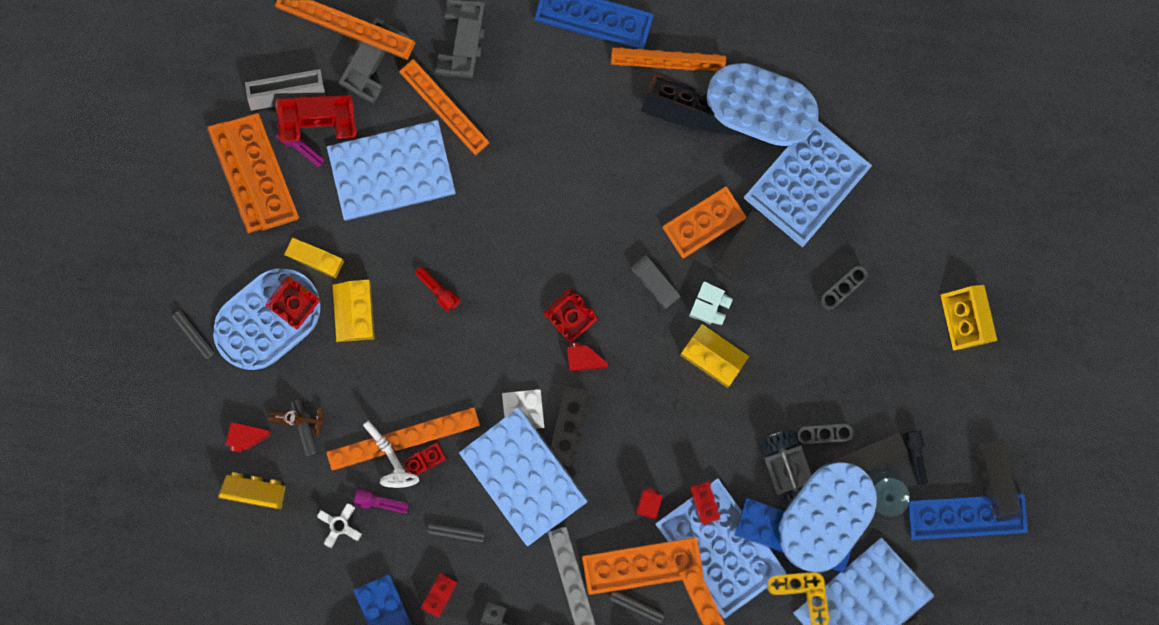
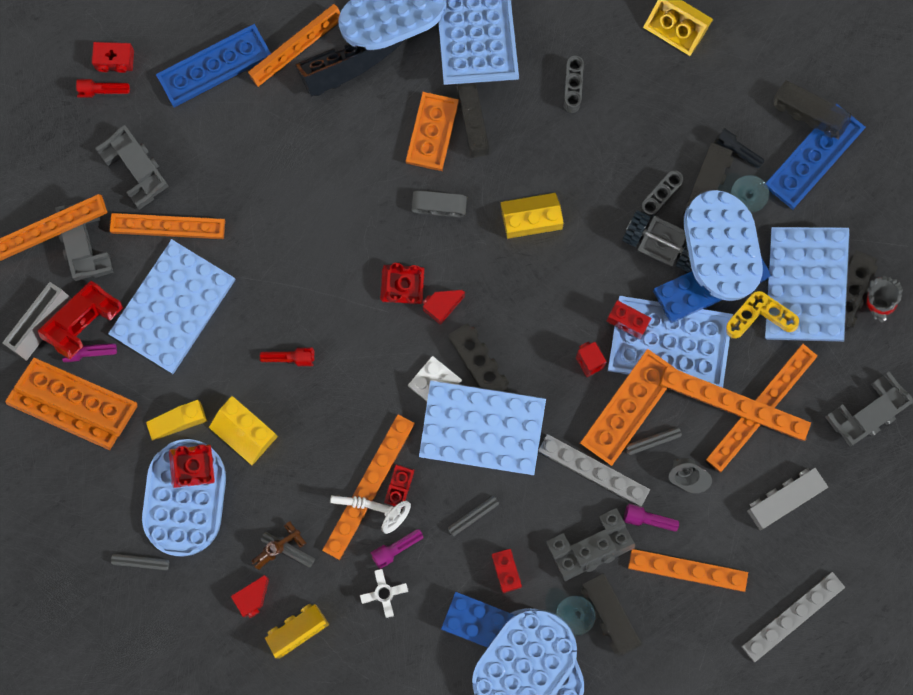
camera: 40 degrees left, 5 degrees down
(708, 311) = (490, 182): light aqua hips -> none

